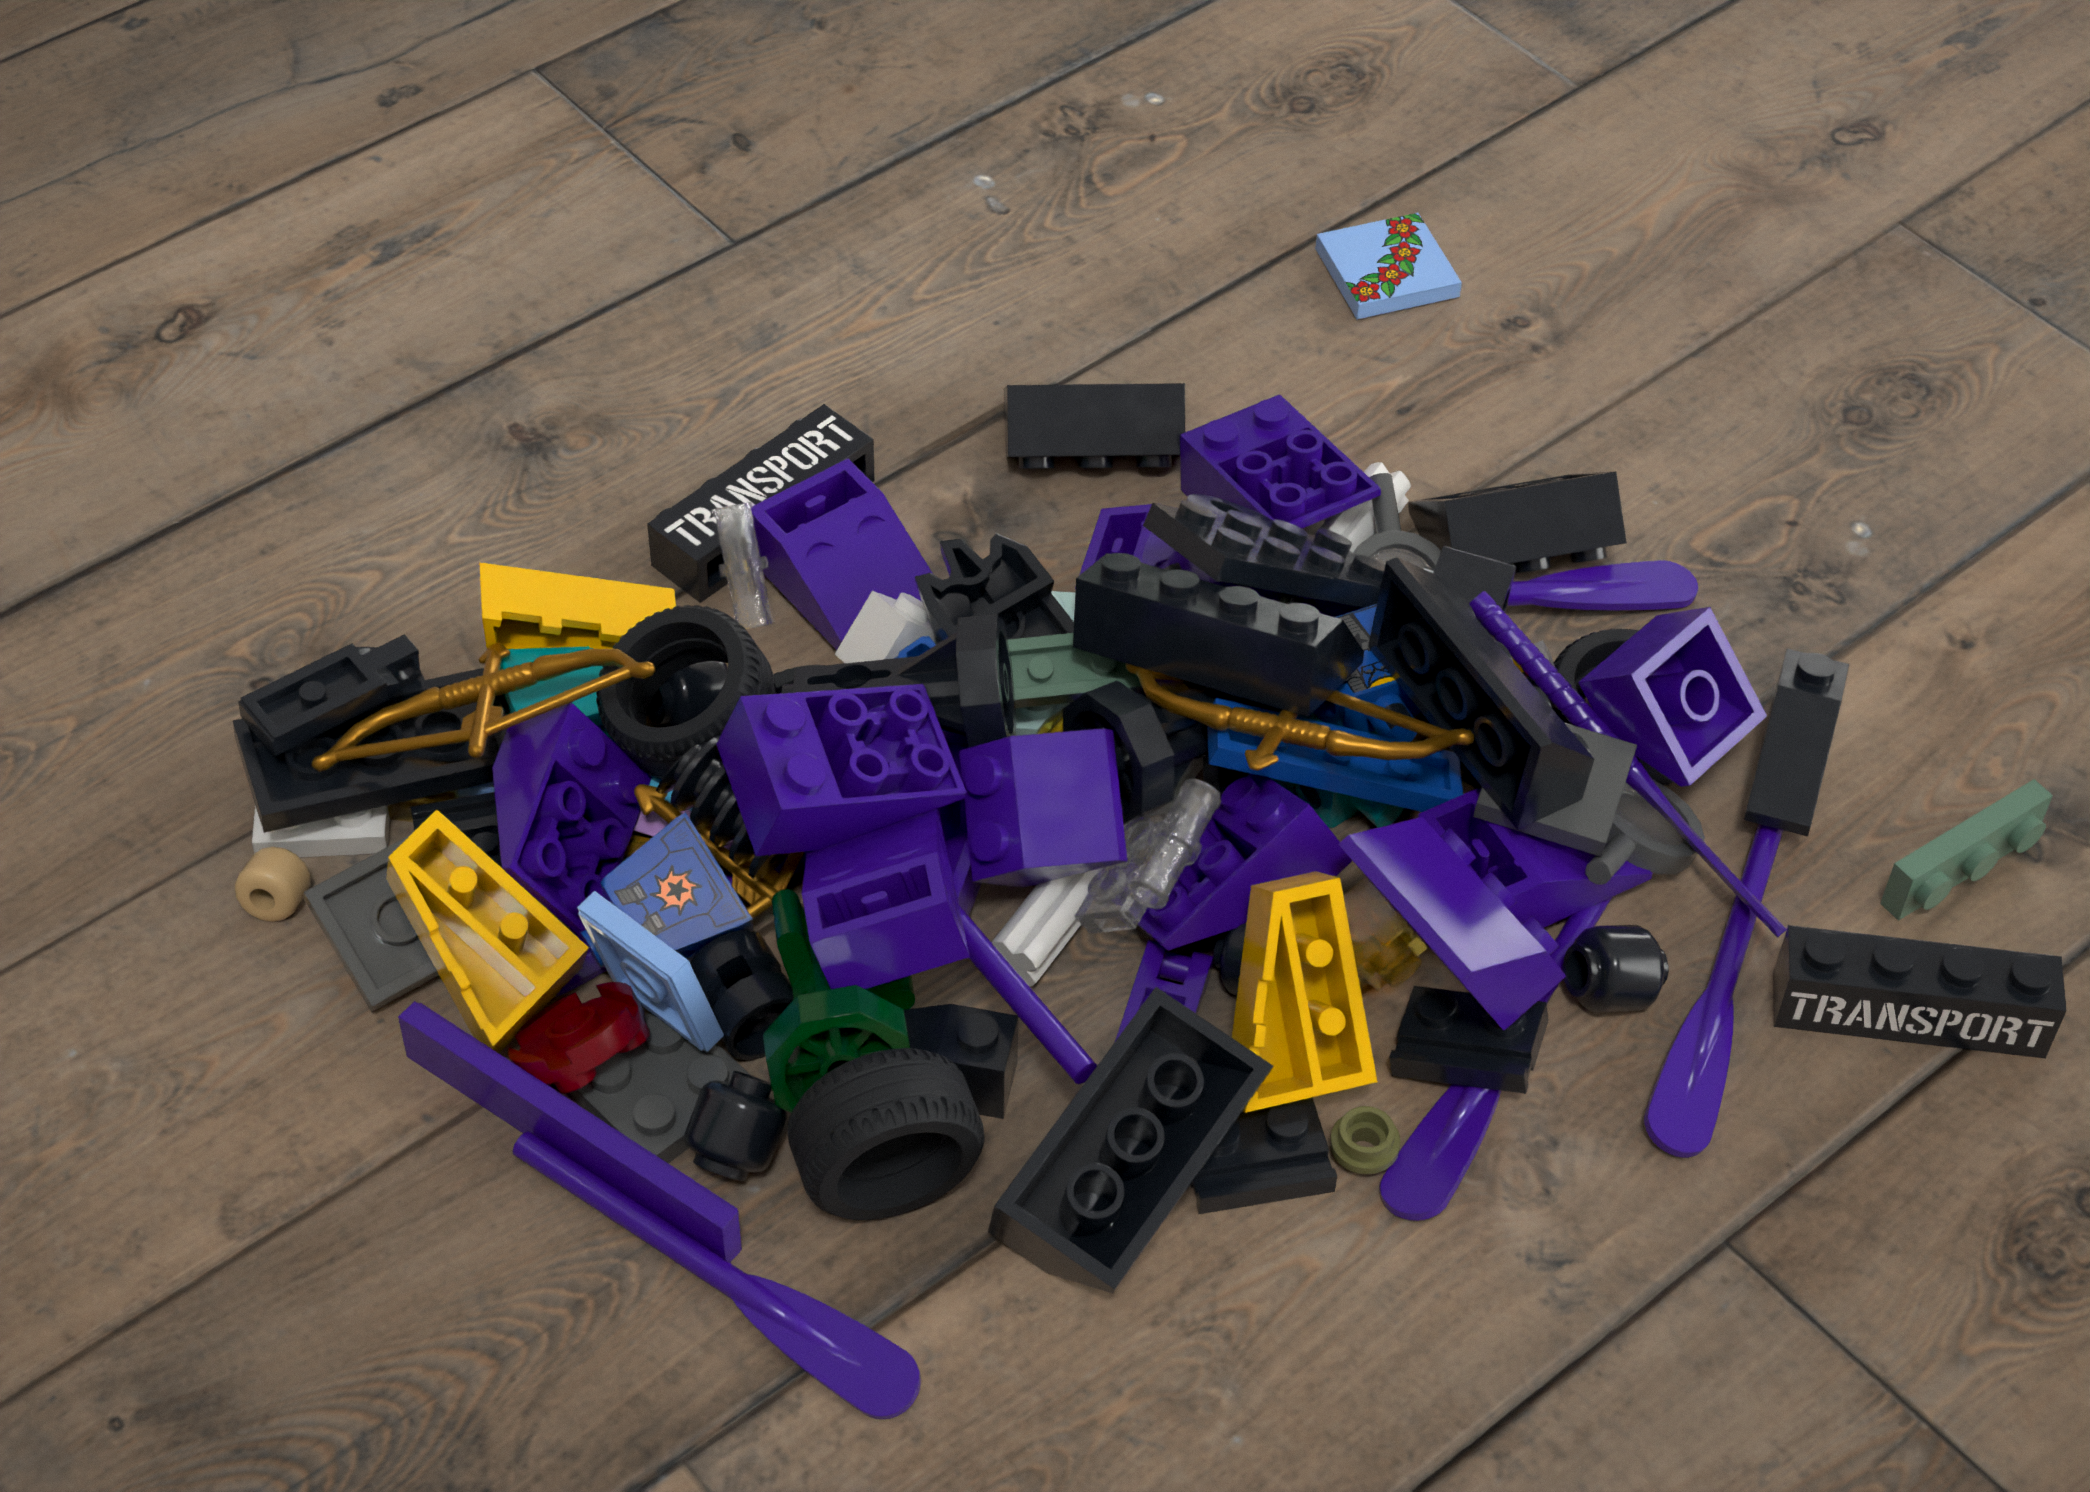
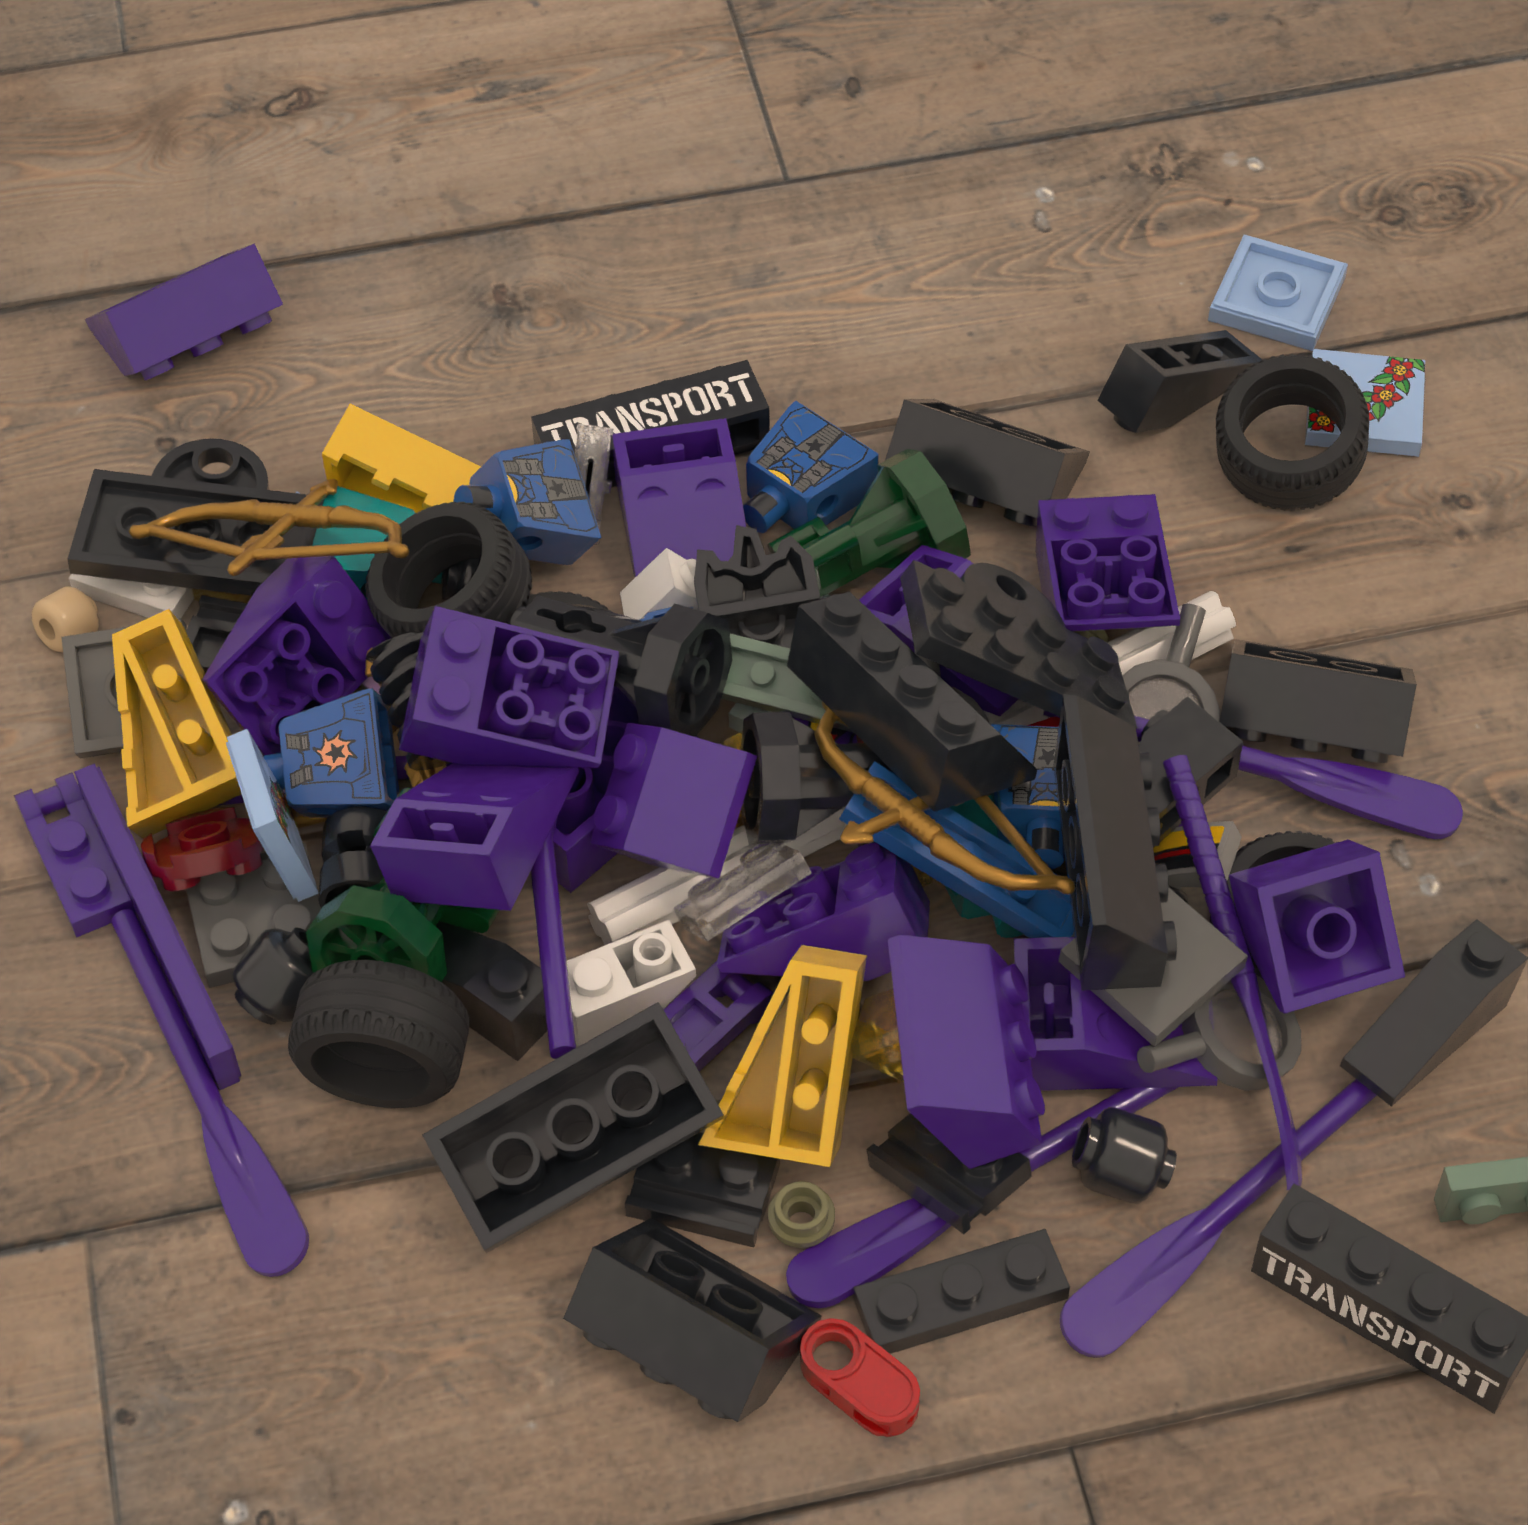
camera: 30 degrees right, 5 degrees up
(212, 549) = (187, 313): none -> dark purple slope
(328, 692) = (175, 473): black hinge -> none
(430, 1104) = (74, 855): none -> dark purple plate
(715, 575) = (538, 500): none -> torso
(941, 484) = (806, 472): none -> torso
(1065, 485) = (897, 515): none -> dark green piece
(1085, 993) = (626, 979): none -> white slope
(1174, 844) = (773, 879): clear pin -> none
(1214, 299) = (1172, 378): none -> black slope
(1250, 198) = (1278, 292): none -> light blue tile
(1334, 1276) = (689, 1318): none -> black slope
(1362, 259) = (1292, 382): none -> black tyre
(1527, 1264) = (871, 1388): none -> red piece
(1547, 1150) = (961, 1292): none -> black plate

